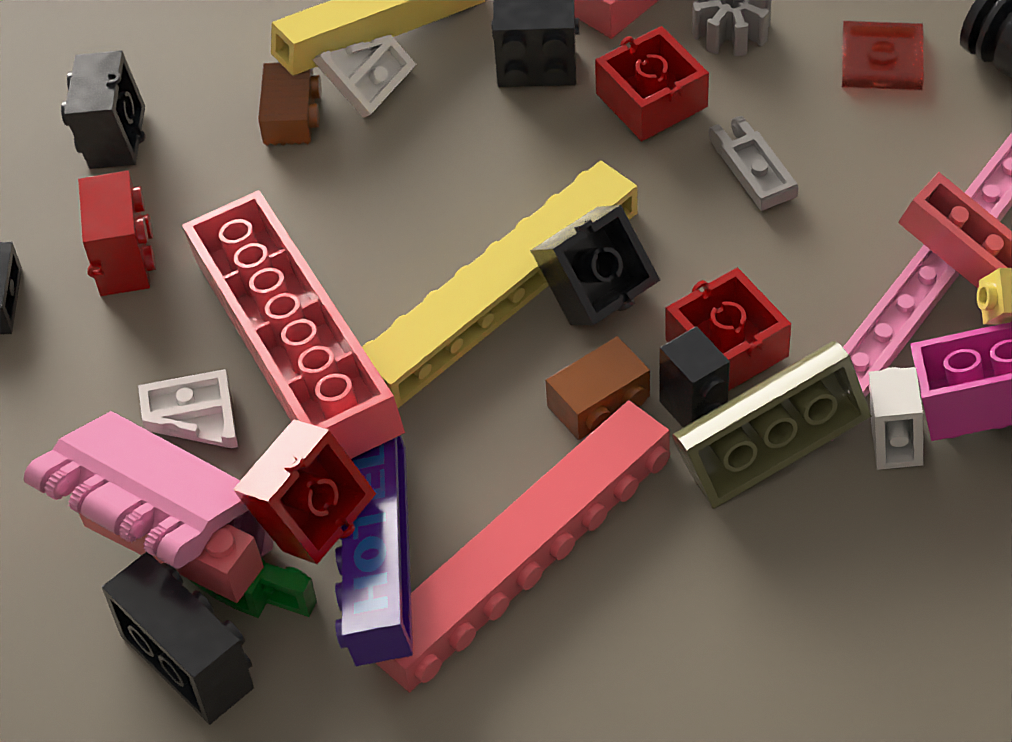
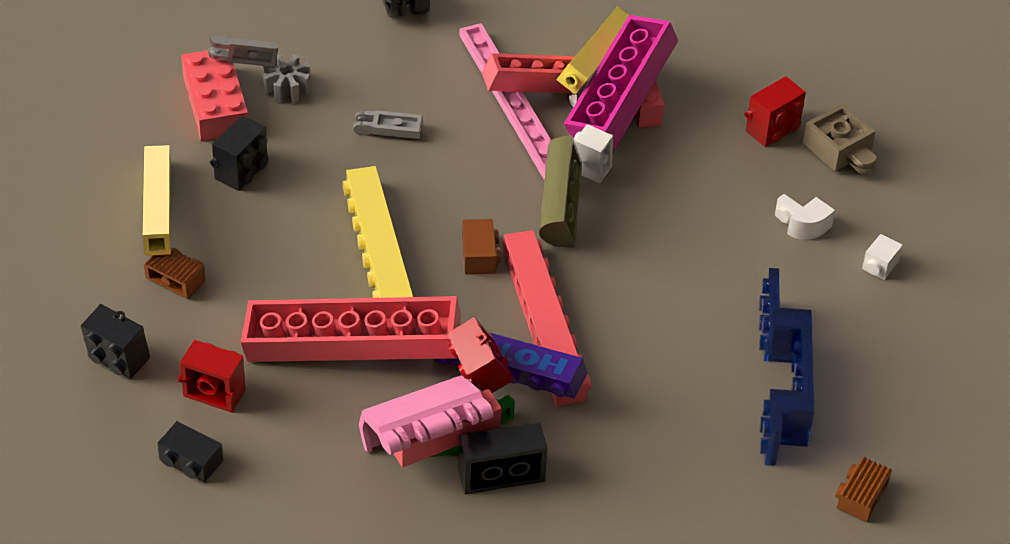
camera: 65 degrees left, 5 degrees down
(191, 408) = (349, 400): white wing -> none
(366, 71) = (188, 229): white wing -> none
(595, 265) = (414, 204): black brick -> none
(651, 82) = (309, 128): red brick -> none
(692, 377) = (513, 206): black brick -> none
(735, 321) = (491, 183): red brick -> none
(882, 55) = (362, 46): clear red tile -> none

